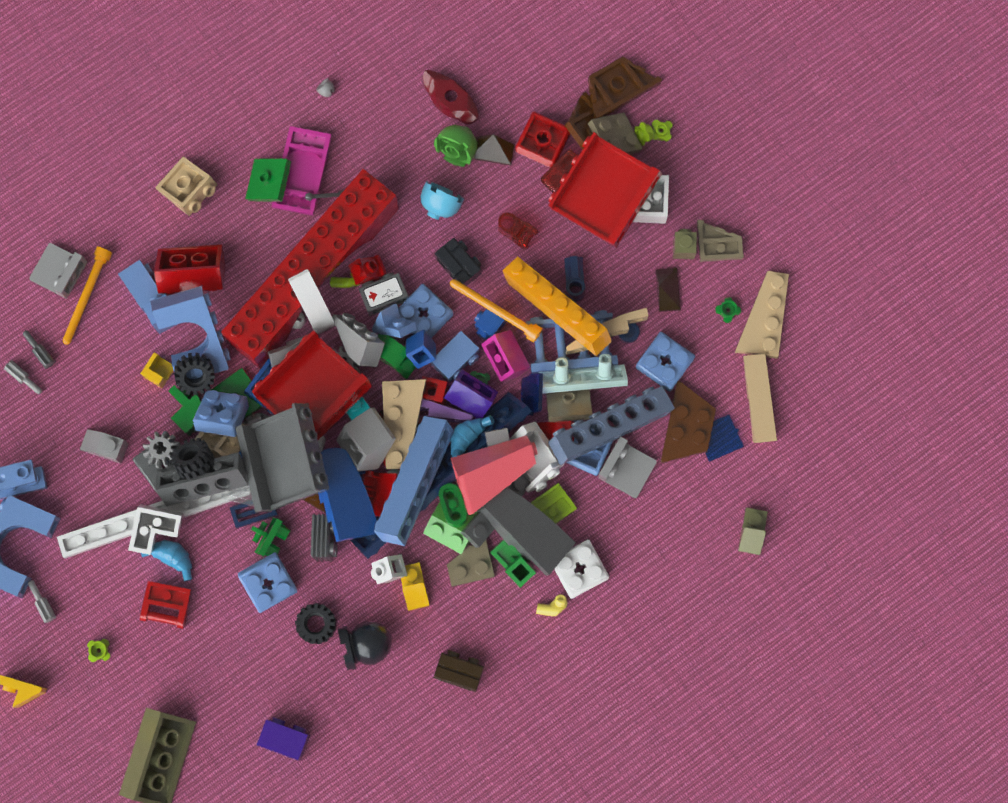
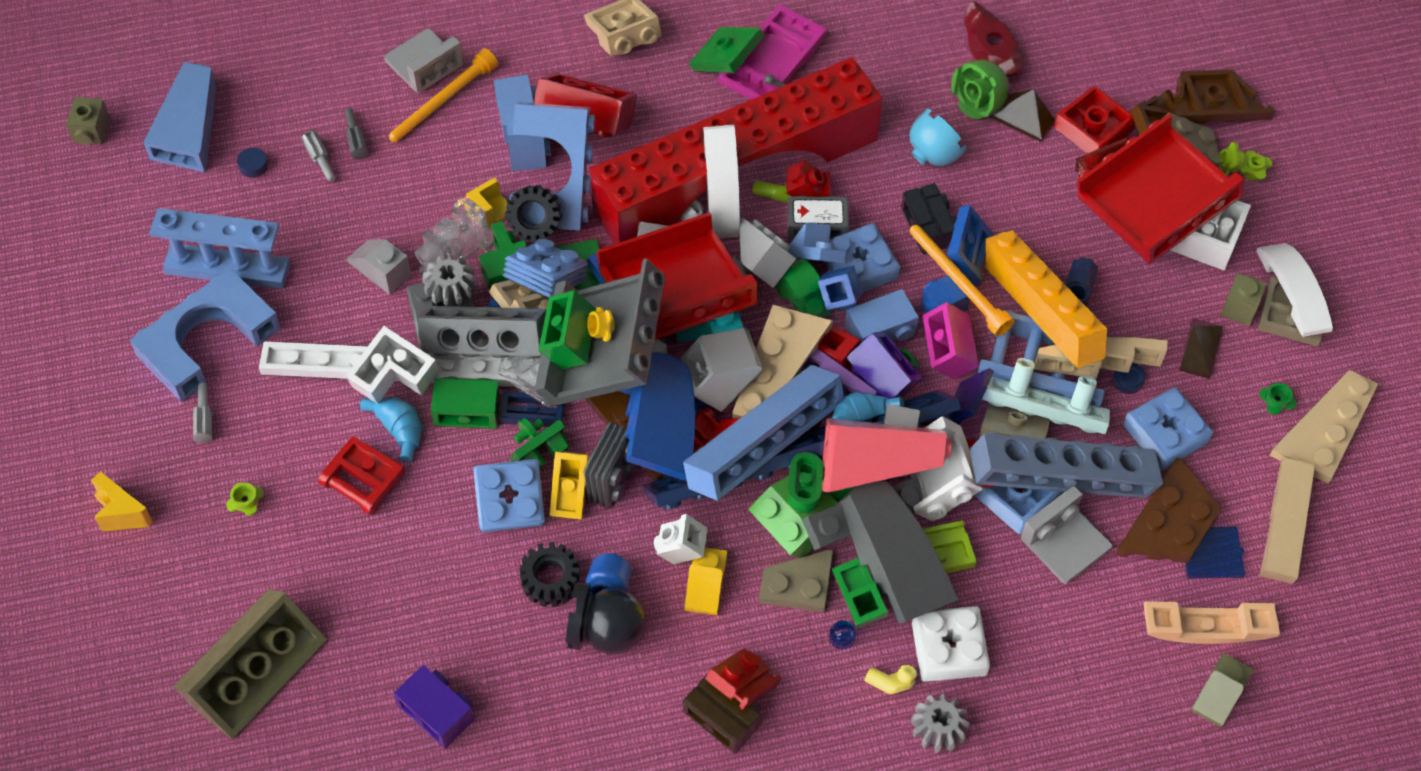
camera: 20 degrees right, 20 degrees down
(148, 415) = (456, 237): none -> clear hips
(192, 458) = (482, 295): black tyre -> none
(209, 526) = (465, 403): none -> green brick
(259, 463) = (565, 330): none -> green brick
(280, 453) = (600, 324): none -> yellow plate
(302, 561) = (568, 485): none -> yellow slope
(353, 611) = (609, 572): none -> blue head
(463, 646) = (743, 677): none -> red plate
(492, 277) = (969, 244): none -> blue plate
(513, 593) = (844, 639): none -> clear blue hinge
(517, 231) = (1022, 210): clear red piece -> none
(592, 632) = (935, 732): none -> light grey gear
(716, 221) = (1300, 286): none -> white slope
(732, 490) = (1211, 625): none -> light nougat slope

